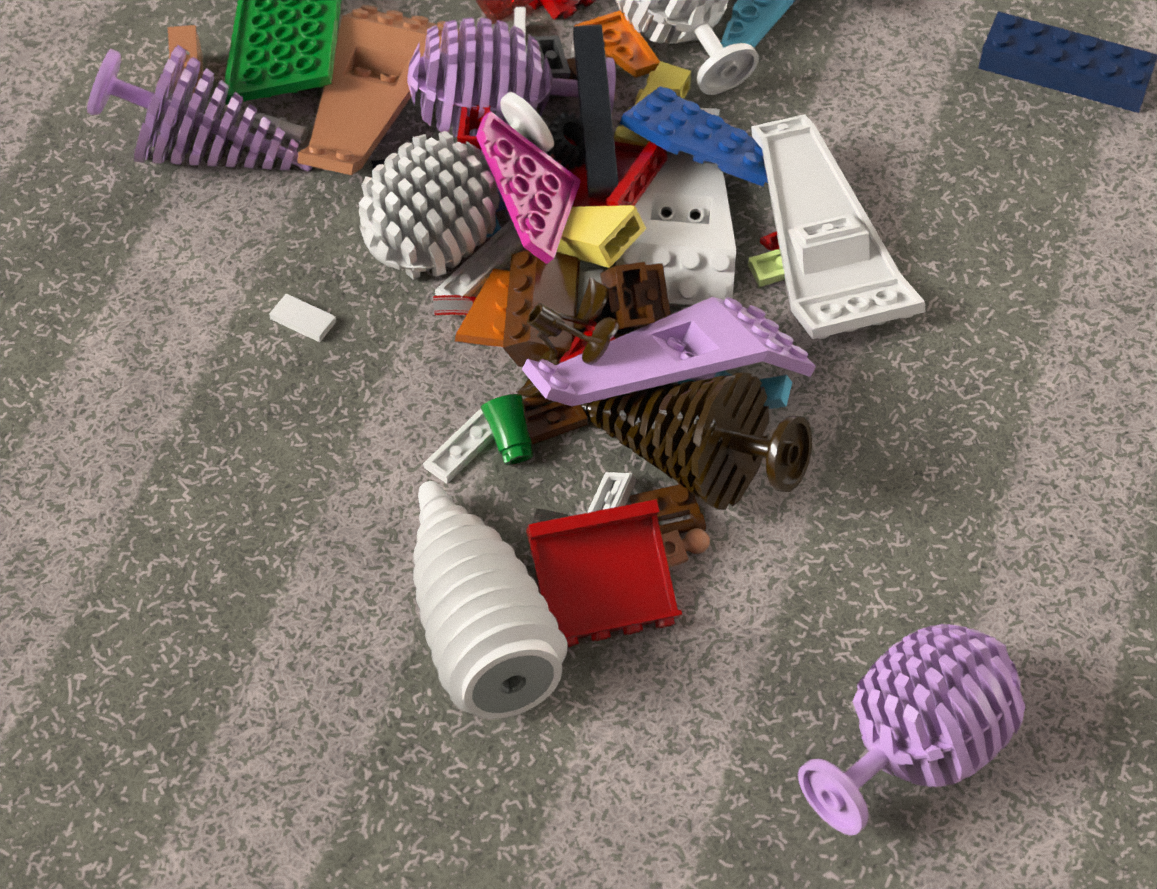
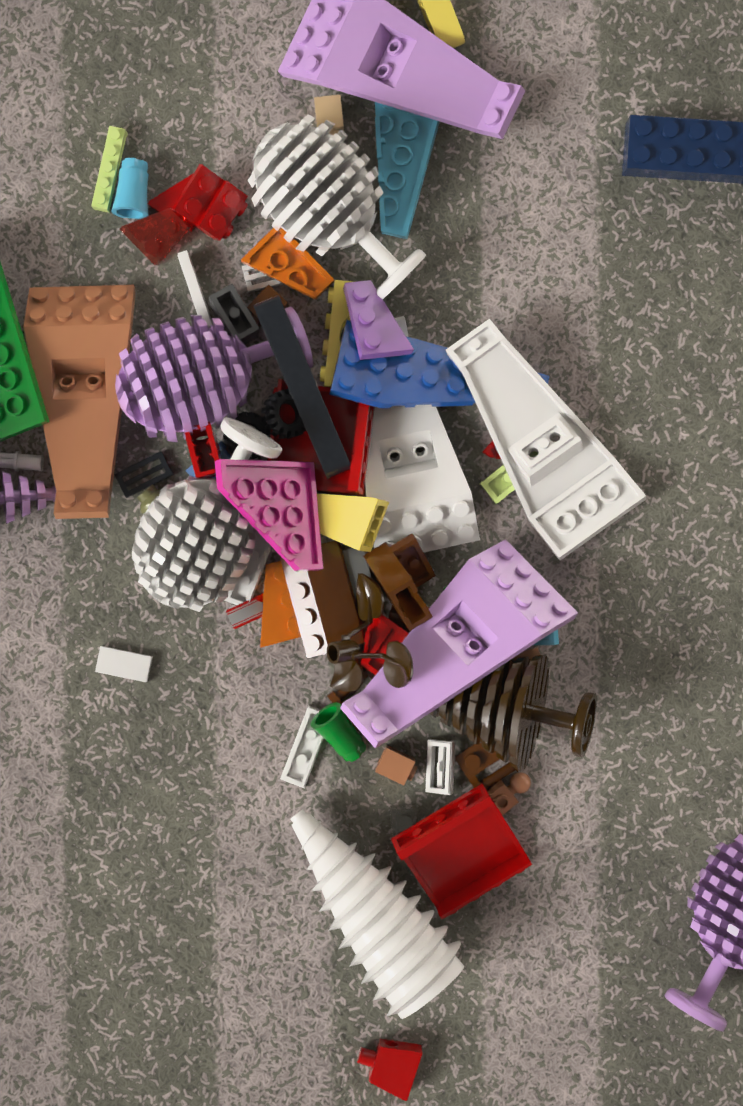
camera: 15 degrees left, 35 degrees up
(430, 791) = (392, 1066): none -> red torso
(559, 481) = (396, 765): none -> nougat brick
(686, 91) = (373, 323): none -> medium lavender wing

